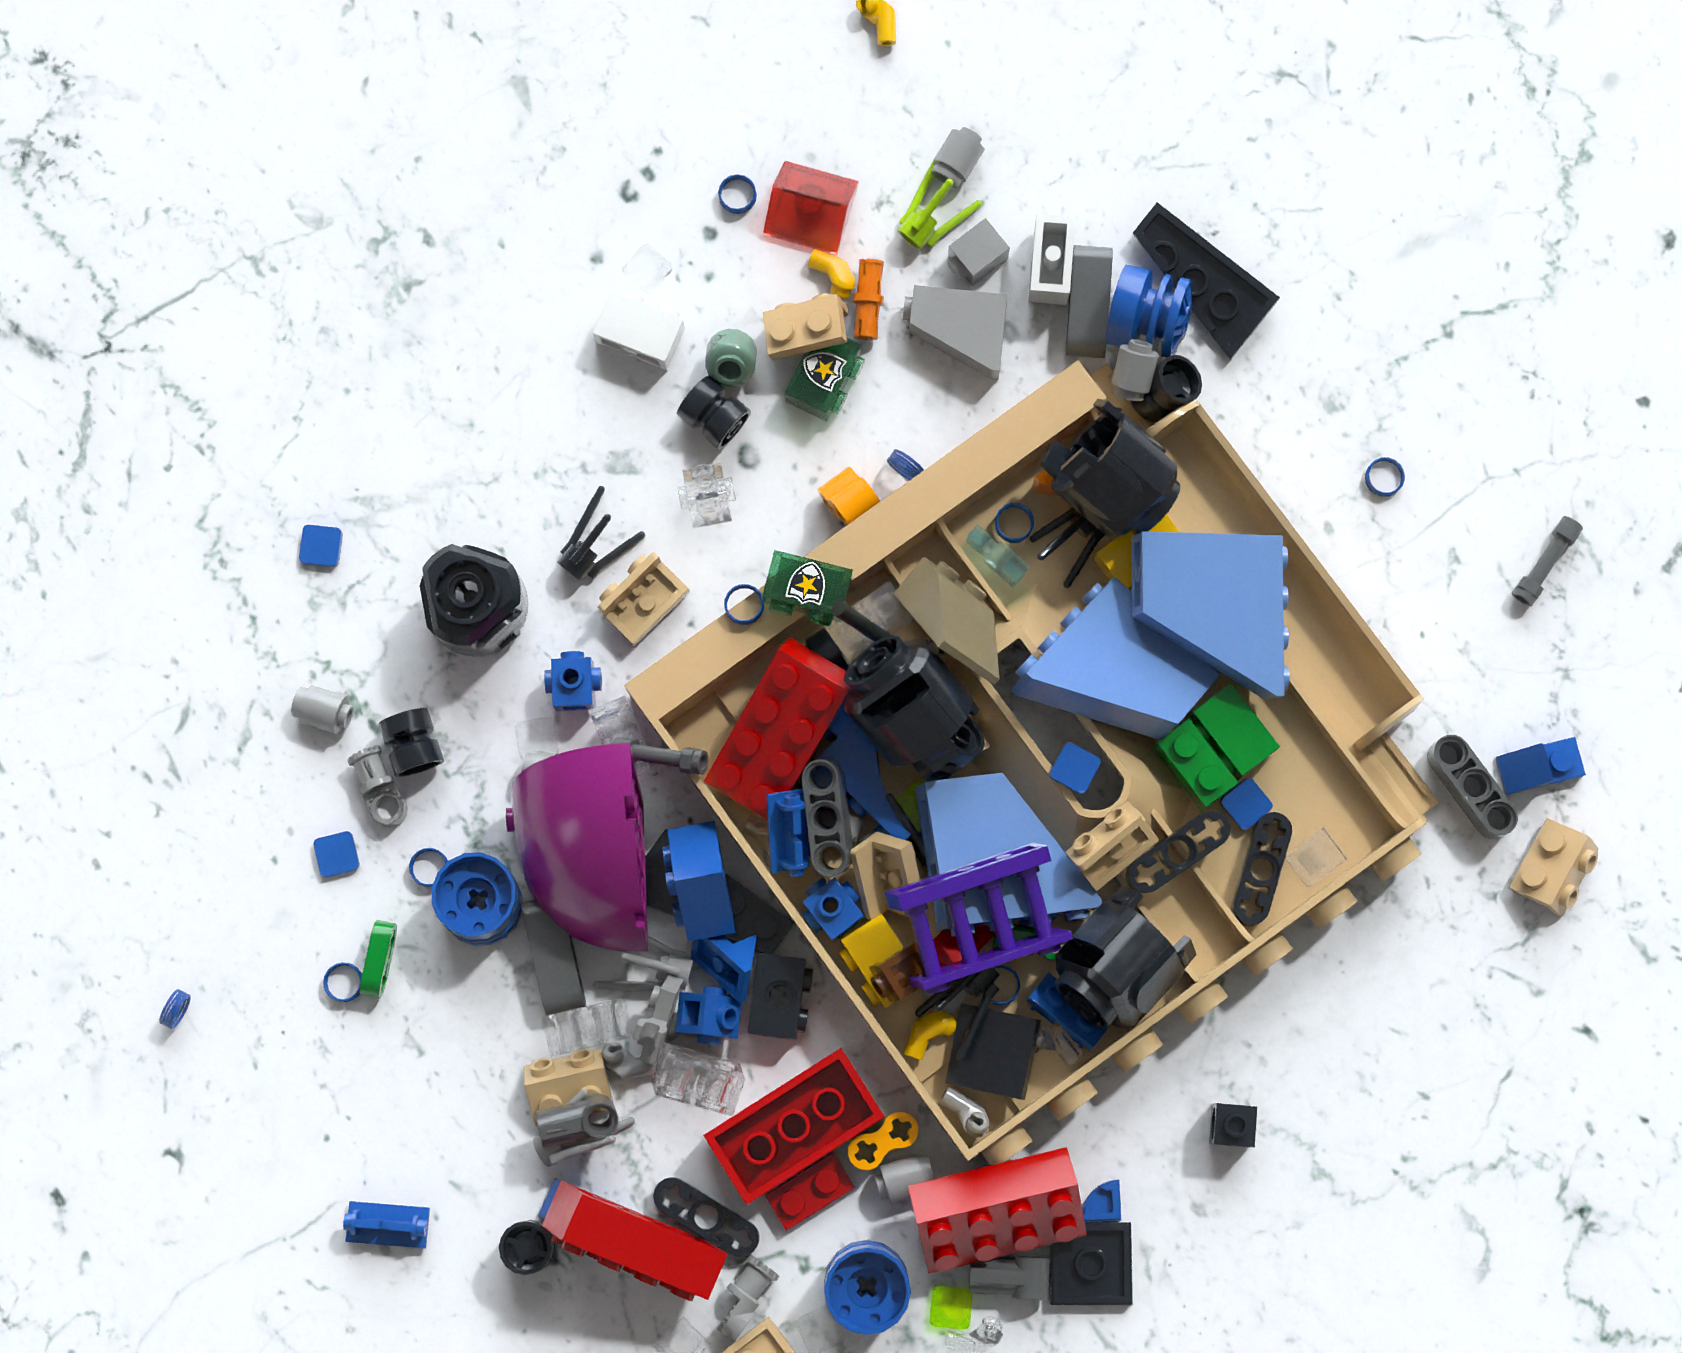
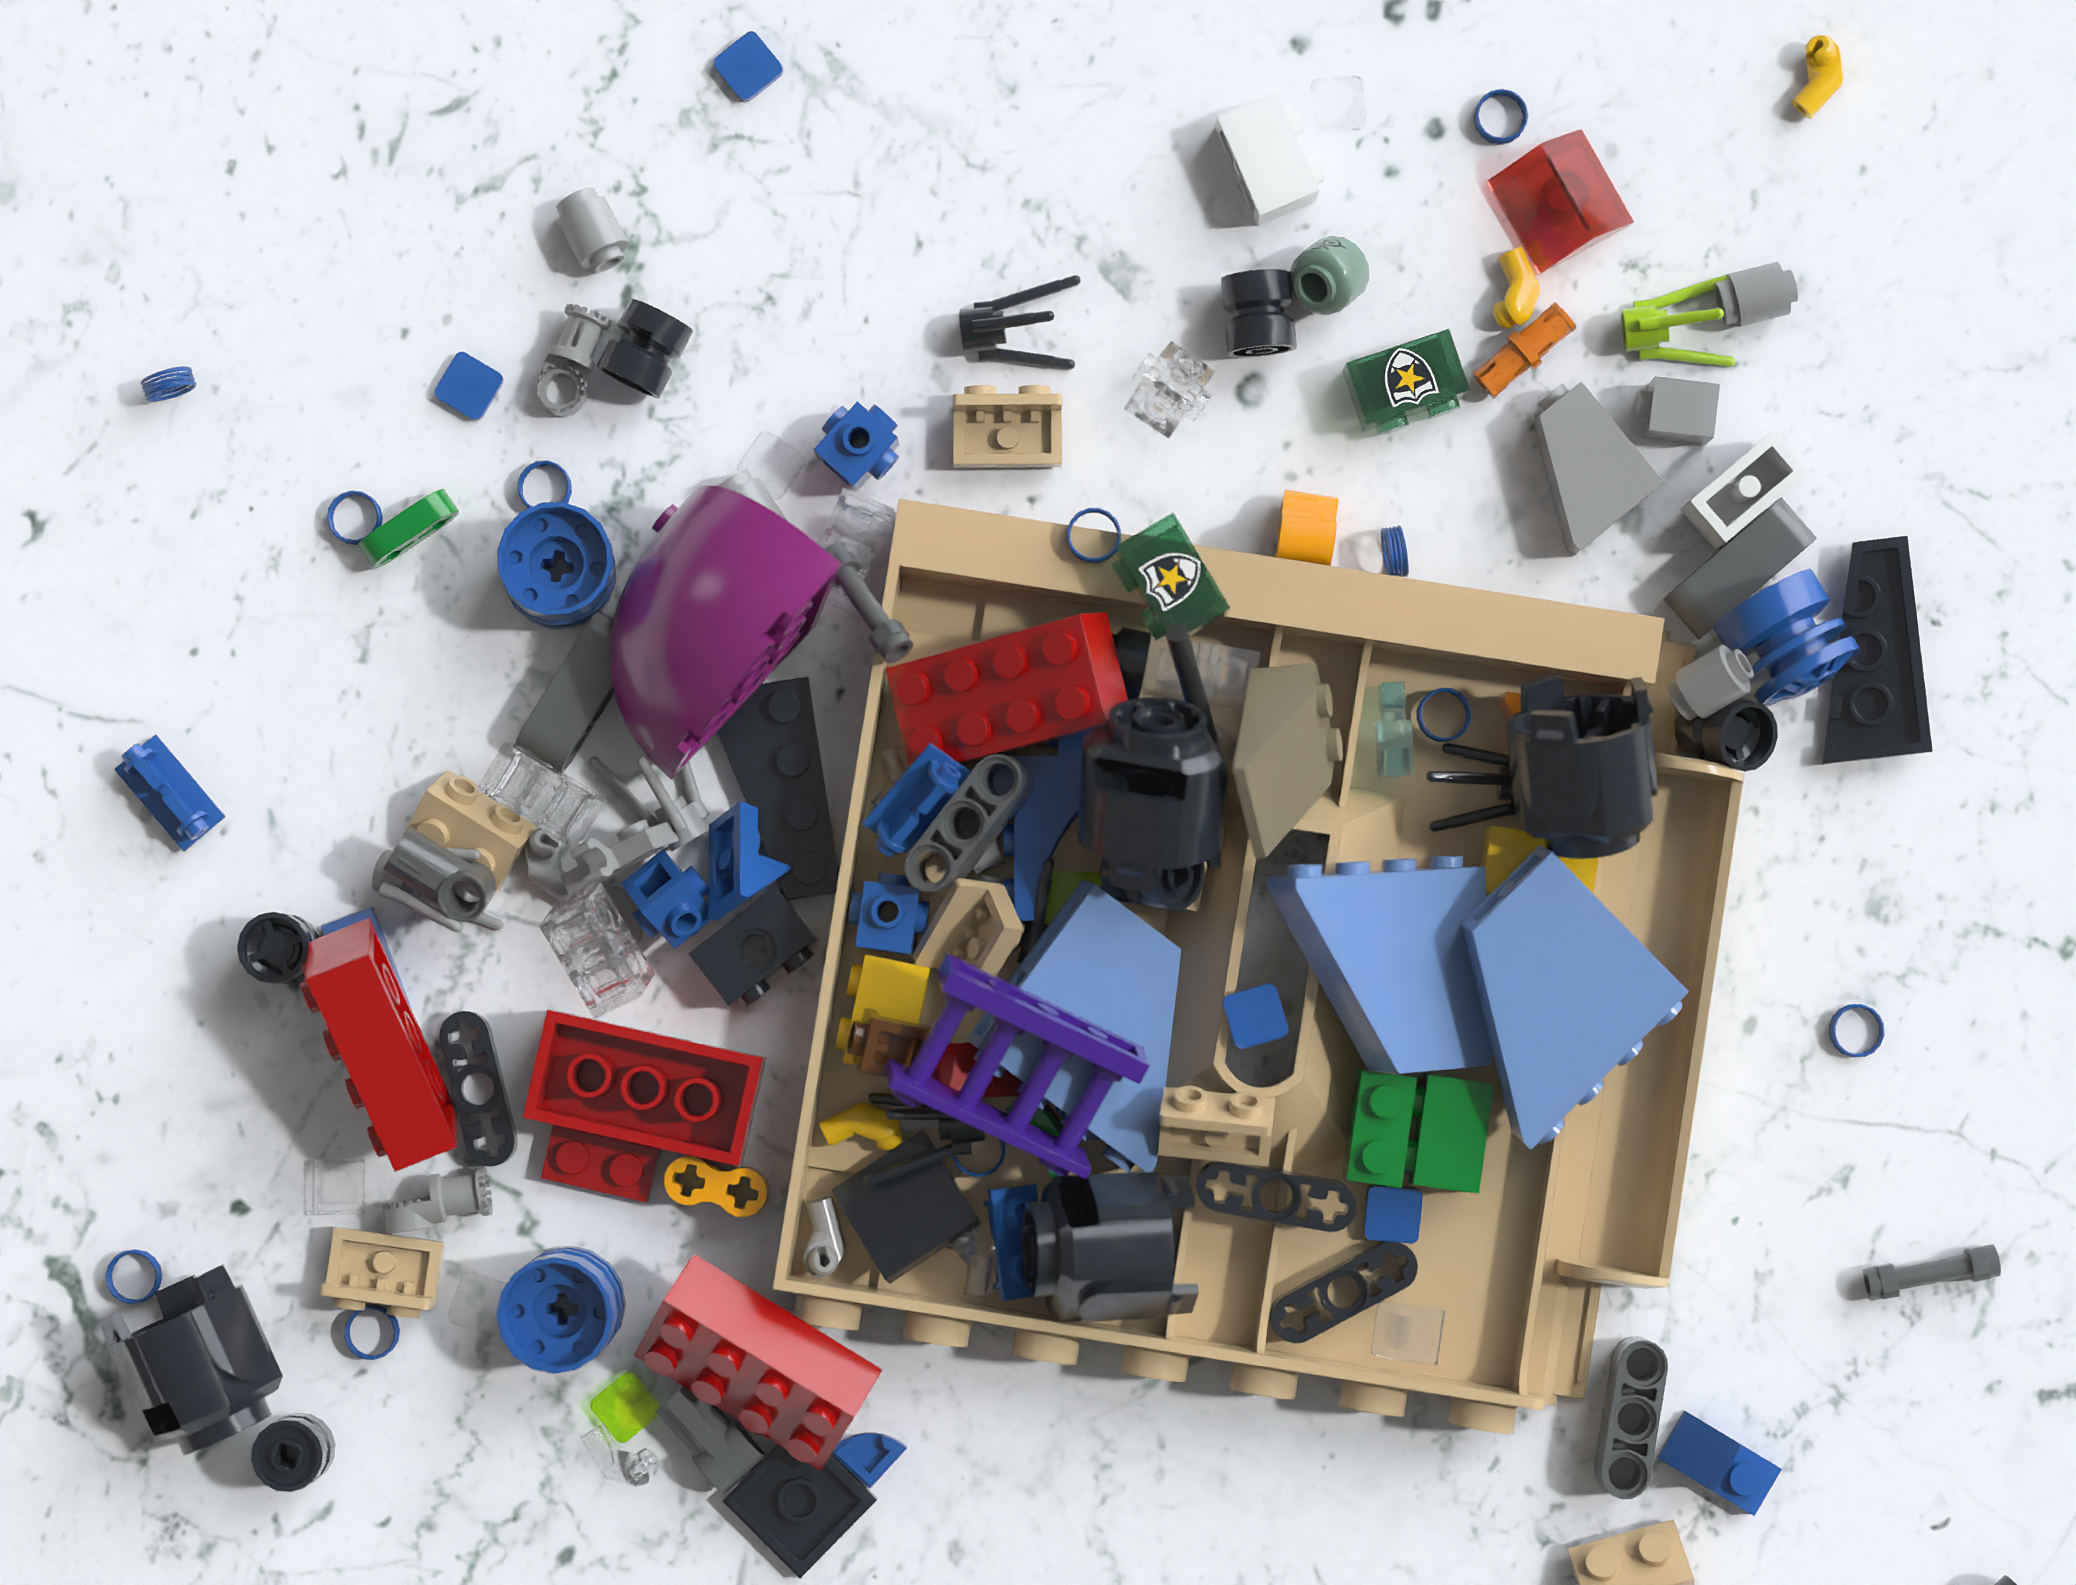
camera: 40 degrees right, 5 degrees up
(487, 617) = (838, 299): black piece -> none
(698, 881) = (784, 760): blue brick -> none
(805, 326) = (1432, 316): tan bracket -> none
(899, 1174) = (704, 1237): light grey brick -> none
(1233, 1125) = (1066, 1507): black brick -> none

